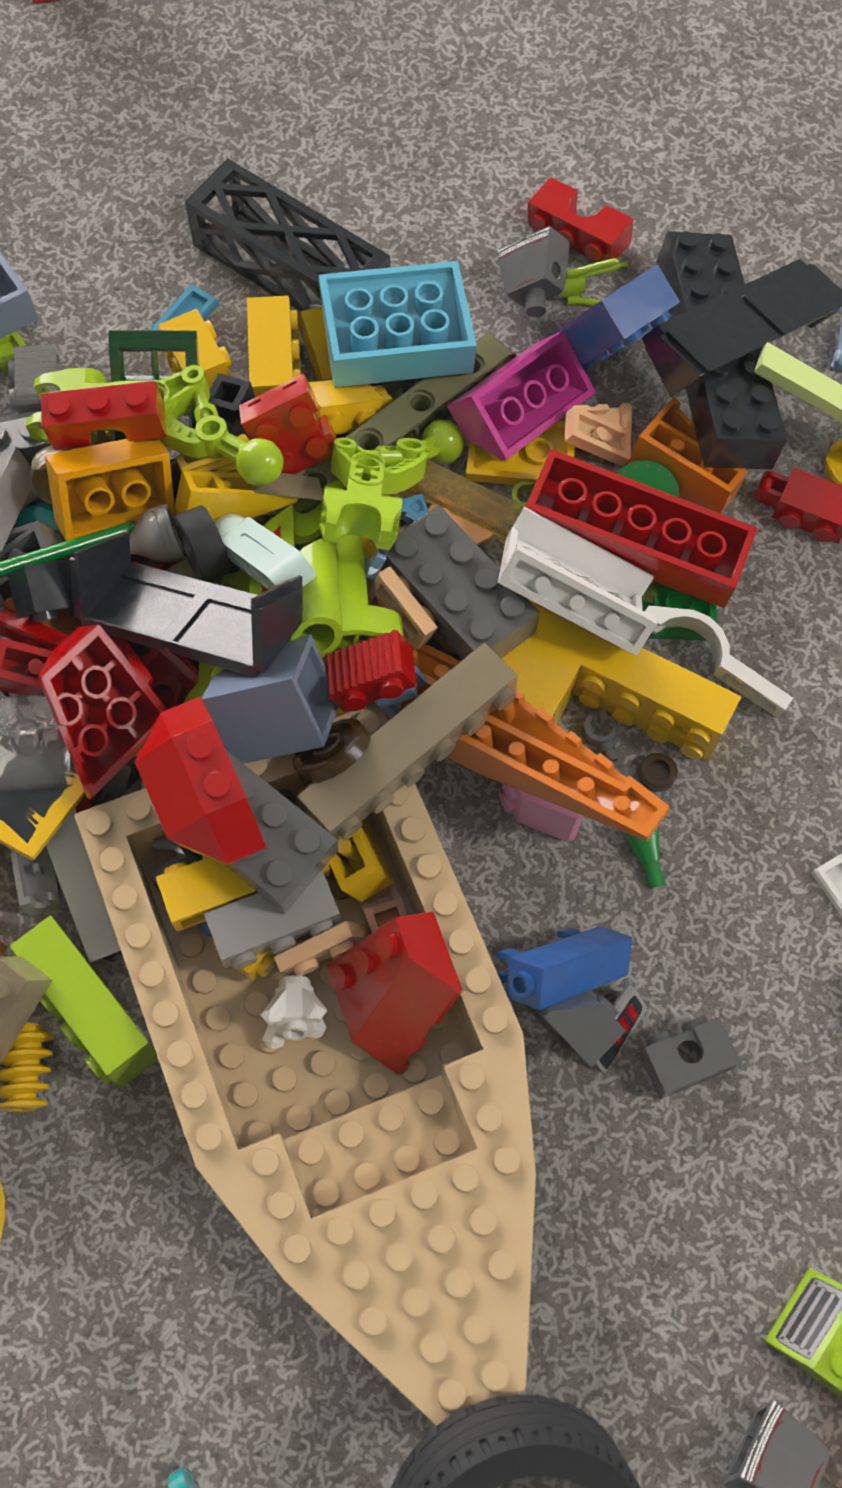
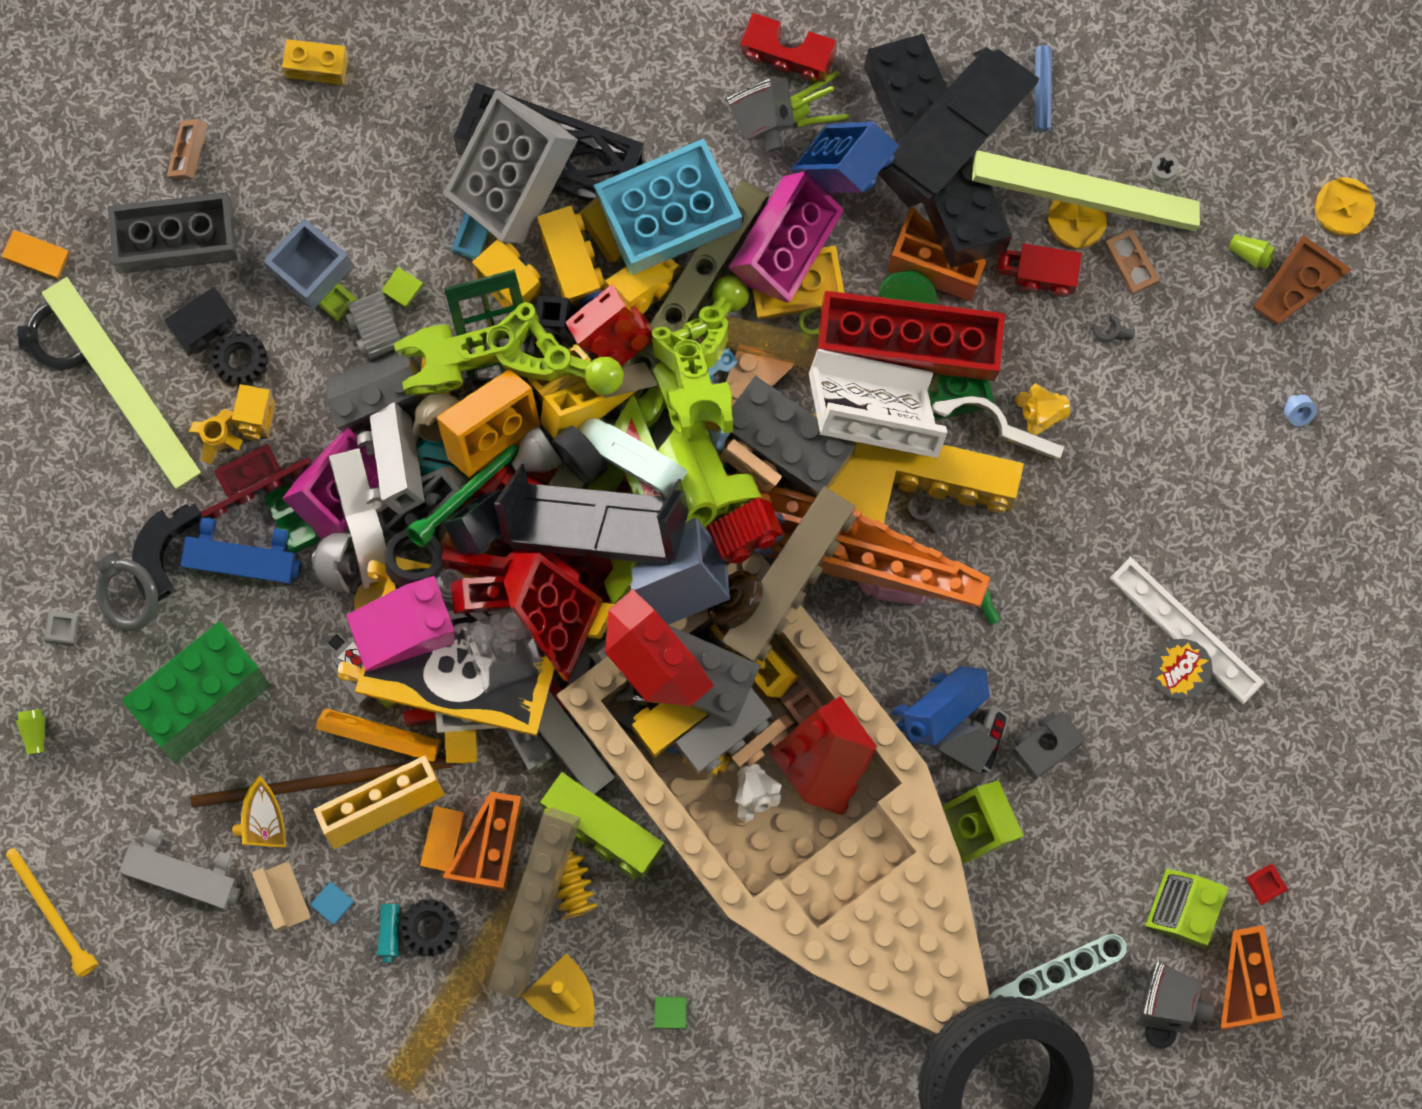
camera: 15 degrees left, 10 degrees up
(75, 122) = (315, 62): none -> yellow brick
(84, 352) = (402, 287): none -> lime tile
(94, 1277) = (670, 1012): none -> bright green tile
(131, 408) = (488, 365): red arch -> none
(234, 241) = (509, 168): none -> light grey slope
(577, 1134) = (982, 821): none -> lime slope
(601, 431) = (858, 247): light nougat wing -> none
(645, 1366) = (1067, 965): none -> light aqua piece
(657, 772) = (974, 531): dark brown tile -> none
(776, 651) = (1042, 408): none -> yellow rock

